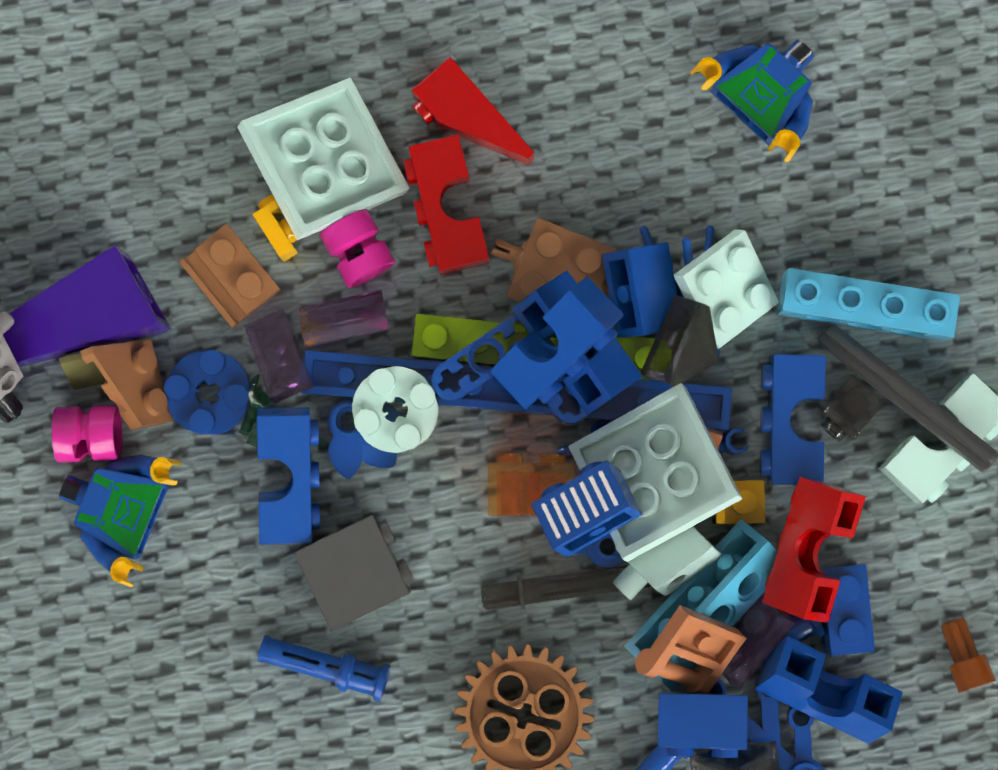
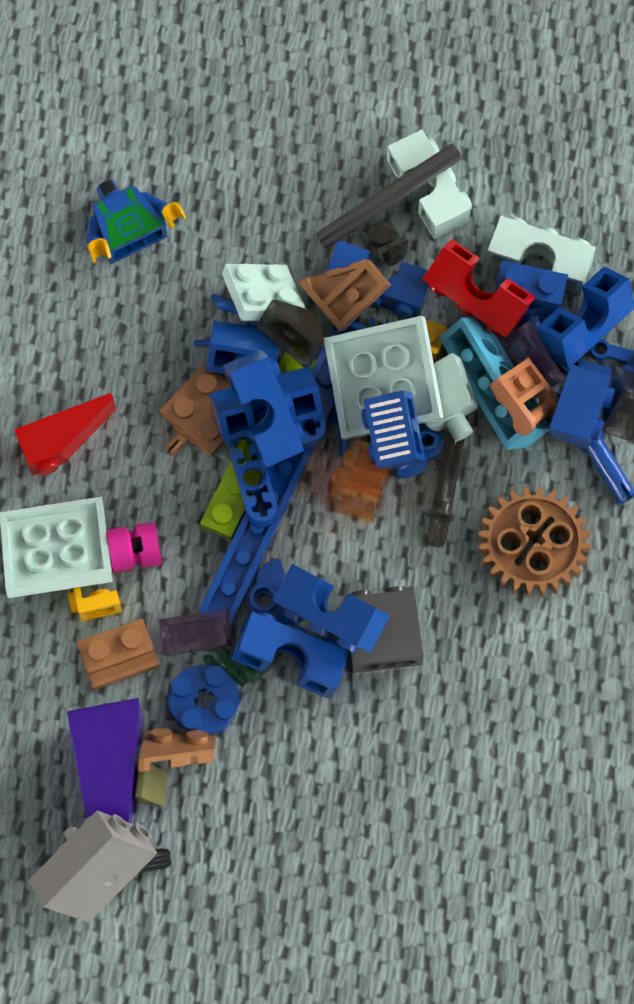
camera: 75 degrees left, 15 degrees down
(87, 433) = (203, 798): dark pink wheel -> none
(119, 509) = (272, 792): torso -> none
(274, 651) = (458, 664): blue pin -> none
(343, 318) = (183, 576): clear purple plate -> none
(351, 470) = (354, 621): none -> blue arch
(406, 431) = (267, 537): light aqua plate -> none
(453, 242) = (153, 479): red arch -> none
(758, 387) = (346, 291): none -> medium nougat wing
(868, 305) = (311, 203): medium azure brick -> none
(904, 644) = (517, 240): none -> light aqua arch
(969, 667) = (602, 221): dark orange piece -> none

